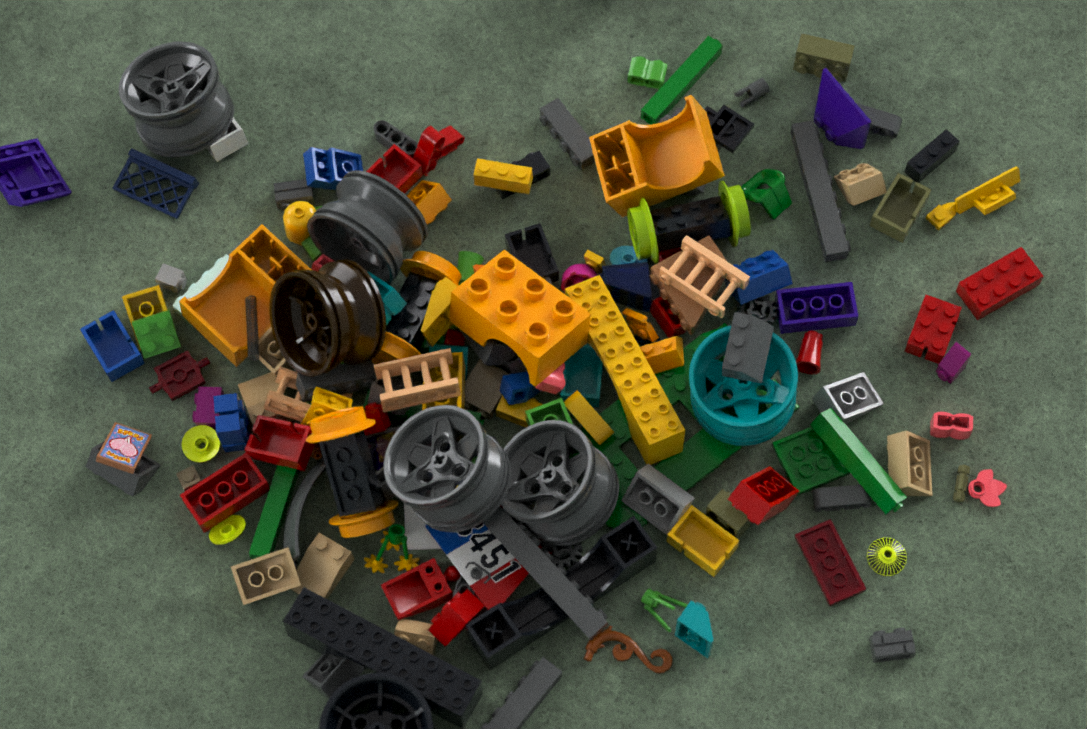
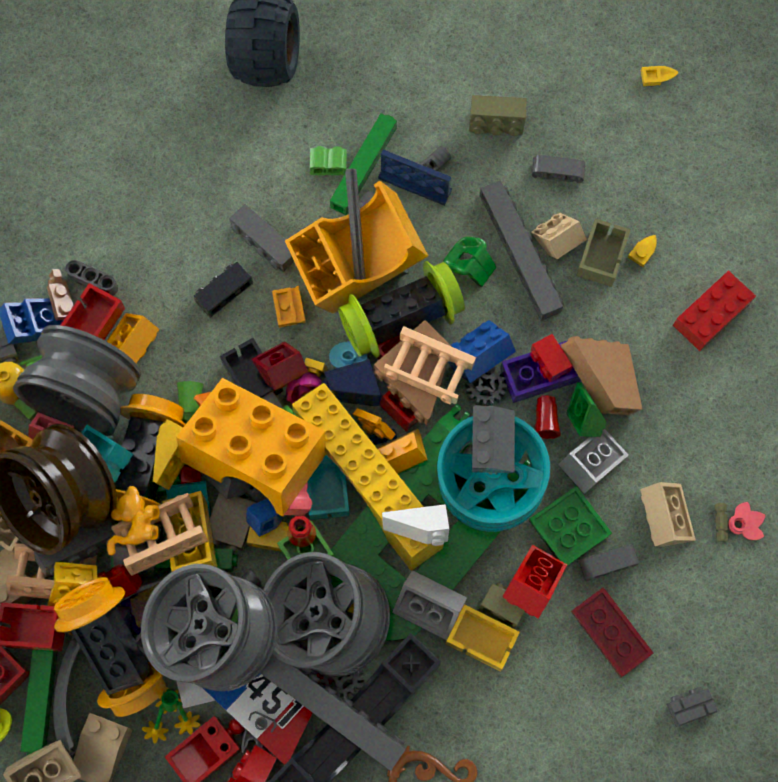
camera: 15 degrees left, 5 degrees up
(362, 150) = (59, 295): none -> medium nougat hinge
(397, 352) = (132, 509): none -> light orange animal
(436, 145) = (131, 276): red beam -> none
(503, 176) = (205, 296): yellow brick -> none
(550, 403) = (304, 537): none -> red plant
(561, 252) = (280, 365): none -> dark red slope
(580, 202) = (288, 306): none -> light orange plate
(588, 417) = (342, 533): yellow beam -> none
(654, 599) = (444, 709): bright green plant -> none
(660, 133) = (355, 224): none -> dark grey axle
(661, 412) = (420, 524): none -> white slope
(695, 628) = (496, 736): teal slope -> none
(717, 98) = (413, 178): none -> dark blue fence
(728, 127) = (420, 203): black bracket -> none
(824, 294) = (550, 358): none -> red brick
(839, 114) = (525, 169): dark purple slope -> none
(848, 354) = (585, 414): none -> green slope
(859, 461) = (620, 523): green brick -> none
(876, 320) = (606, 373): none -> medium nougat slope
(883, 564) = (656, 617): dish -> none
(931, 156) = (621, 194): black brick -> none
(933, 328) = (661, 369): red piece -> none
(953, 363) = (688, 401): magenta slope -> none
(956, 426) = (703, 466): coral brick -> none
(990, 194) = (686, 222): yellow bracket -> none
(992, 47) = (656, 75): none -> yellow plate

